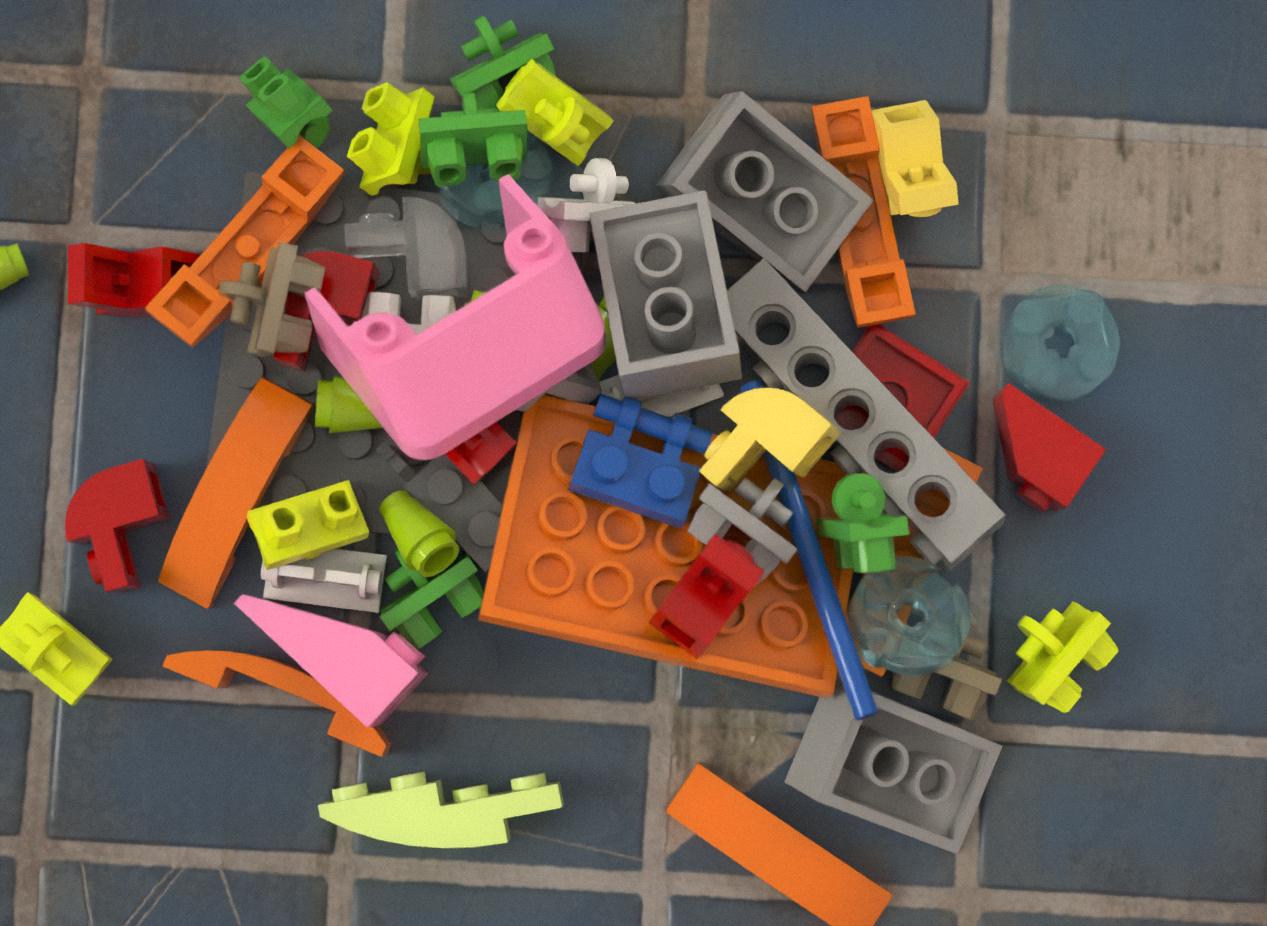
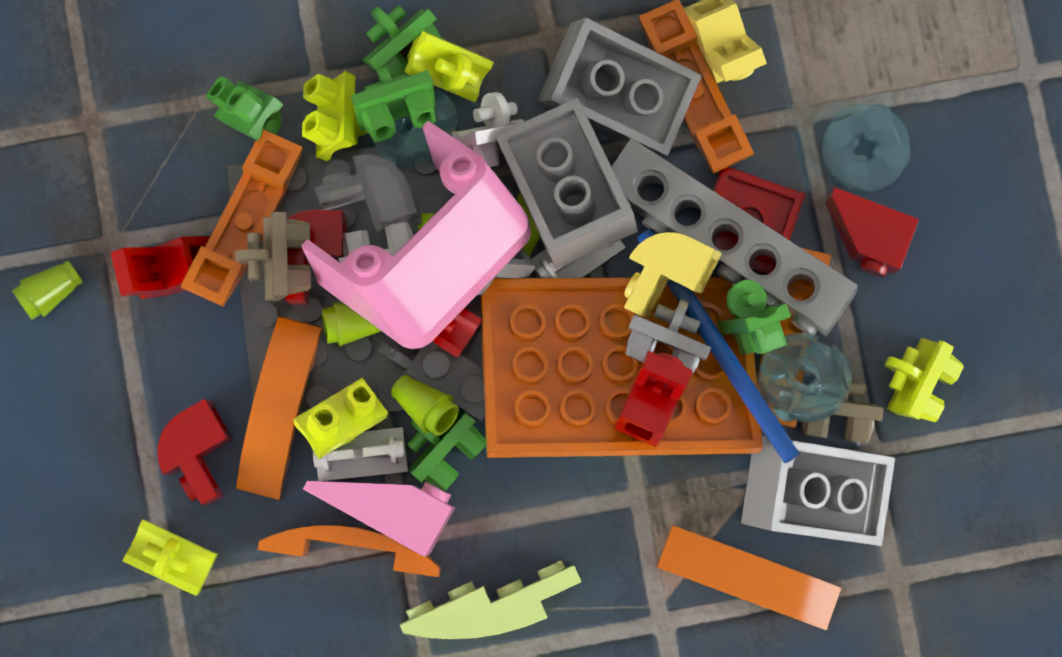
camera: 15 degrees left, 0 degrees up
(634, 476) = (577, 323): blue plate -> none

